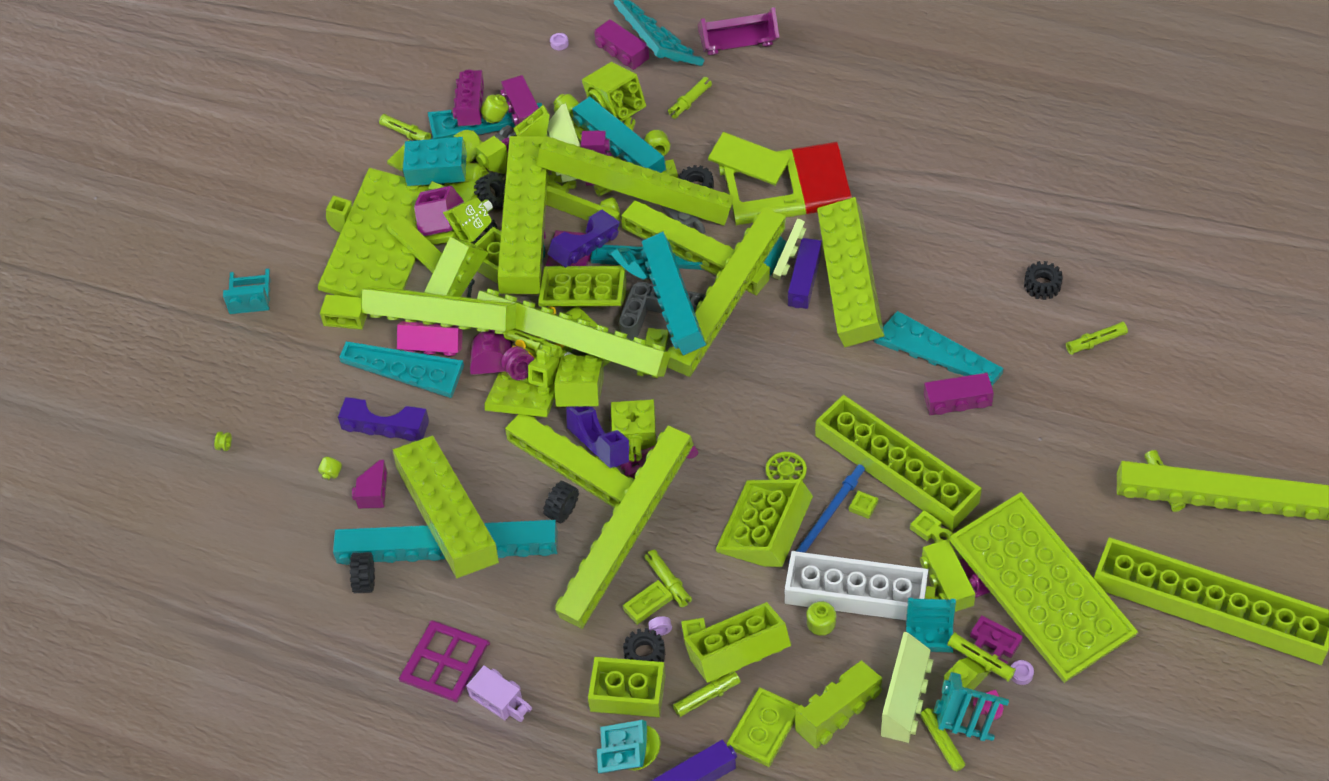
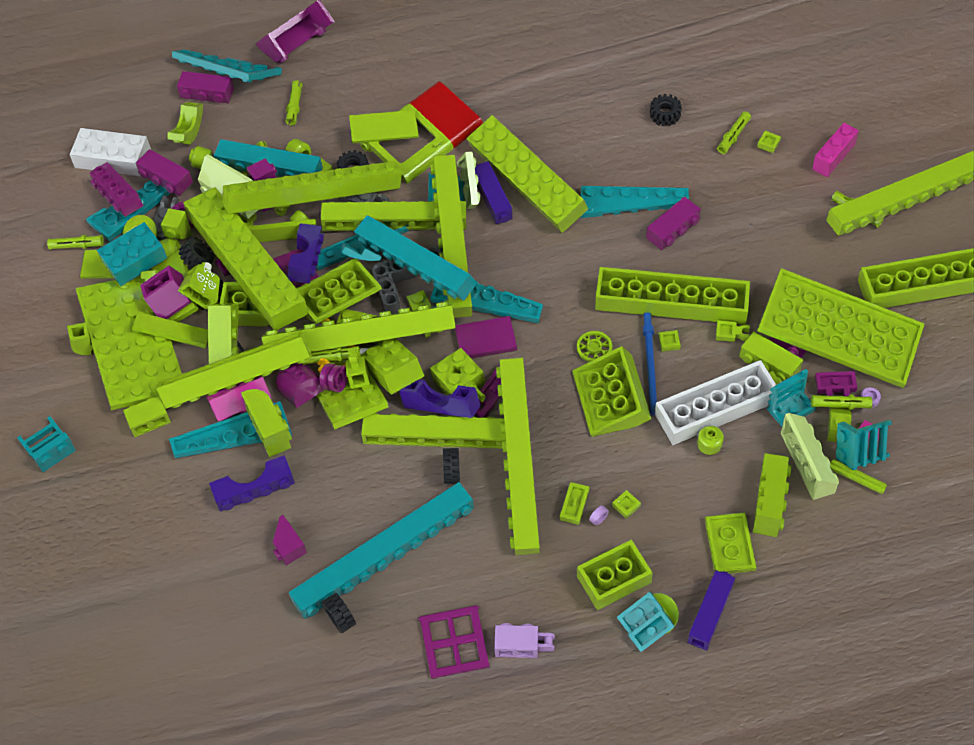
camera: 35 degrees left, 5 degrees up
(223, 441) = (128, 578): lime bush -> none
(329, 468) = (238, 547): lime piece -> none
(429, 371) = (267, 421): none -> lime brick
(445, 507) = (367, 521): lime brick -> none
(494, 58) = (120, 150): none -> white brick
(494, 108) = (146, 187): lime head -> none
(535, 124) = (192, 183): lime slope -> none
(559, 41) = (149, 109): lavender tile -> none
(584, 65) = (188, 123): none -> lime arch
(615, 90) = (236, 123): lime brick -> none
(641, 639) = (596, 530): black tyre -> none
(672, 583) = (575, 476): lime pin -> none
(691, 405) = (486, 337): none -> magenta tile
(710, 691) = (675, 537): lime pin -> none
(731, 382) = (495, 302): none -> teal wing
(737, 642) = (668, 492): lime brick -> none
(1125, 365) = (769, 141): none -> lime plate
(1189, 409) = (835, 149): none -> dark pink brick

